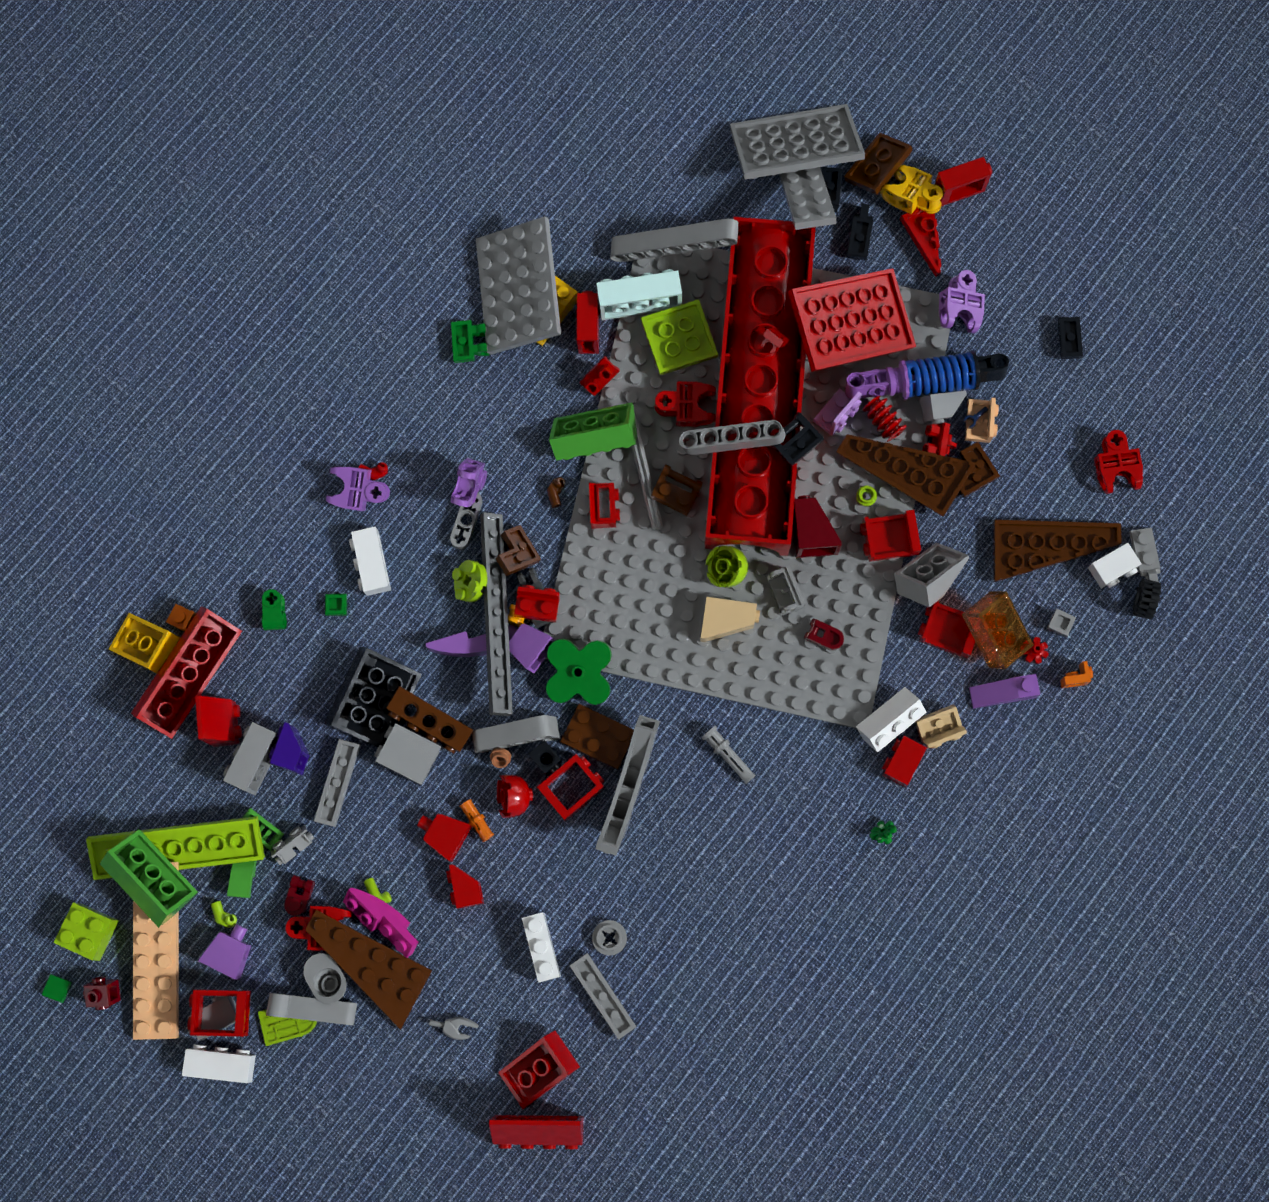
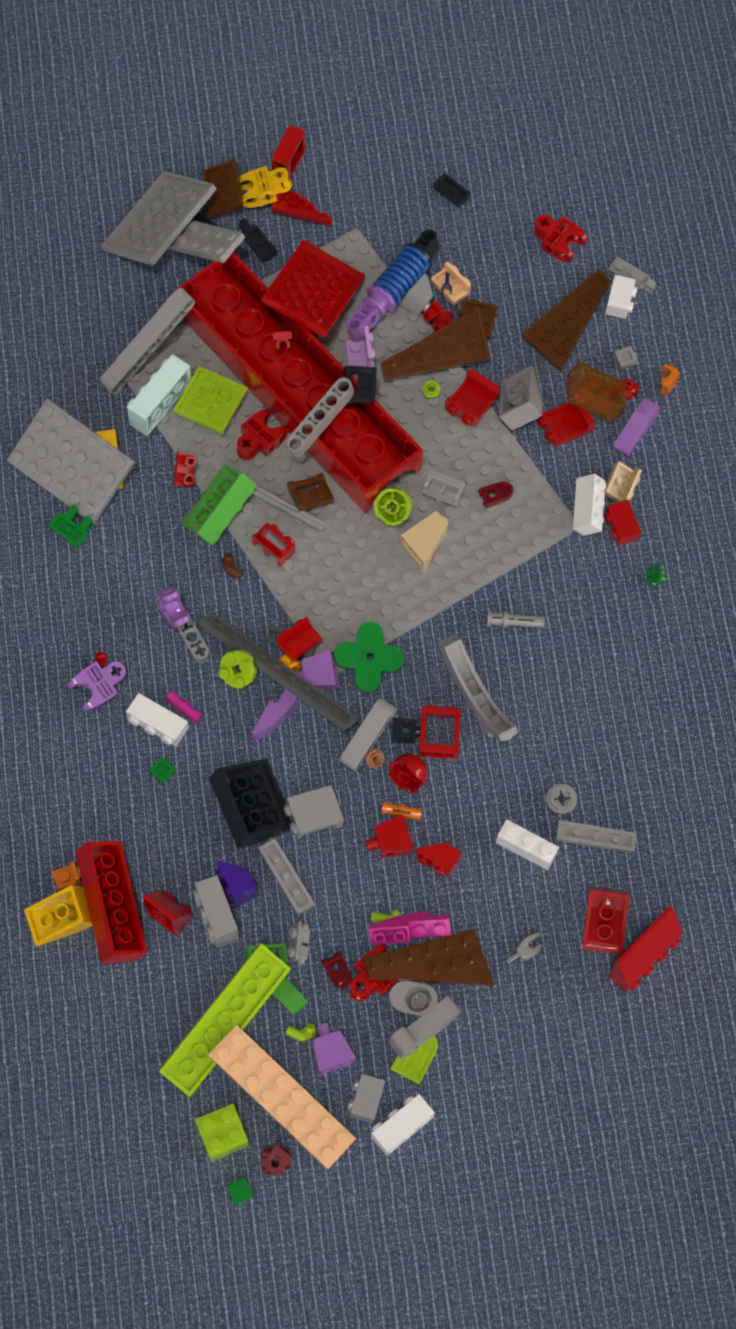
camera: 55 degrees left, 10 degrees down
(148, 877) = (231, 1048): bright green slope -> none
(242, 1013) = (385, 1068): red window -> none
(273, 614) = (128, 813): green piece -> none
(402, 570) = (183, 707): none -> dark pink pin
(404, 698) = (332, 766): reddish brown brick -> none
(521, 552) = (252, 623): reddish brown plate -> none
(588, 322) = (142, 443): red brick -> none
(598, 736) = (421, 687): reddish brown plate -> none
(813, 530) = (427, 432): dark red slope -> none
(884, 418) = (393, 333): red piece -> none
(962, 301) = (365, 225): medium lavender piece -> none
(1146, 599) = (660, 297): black tyre -> none

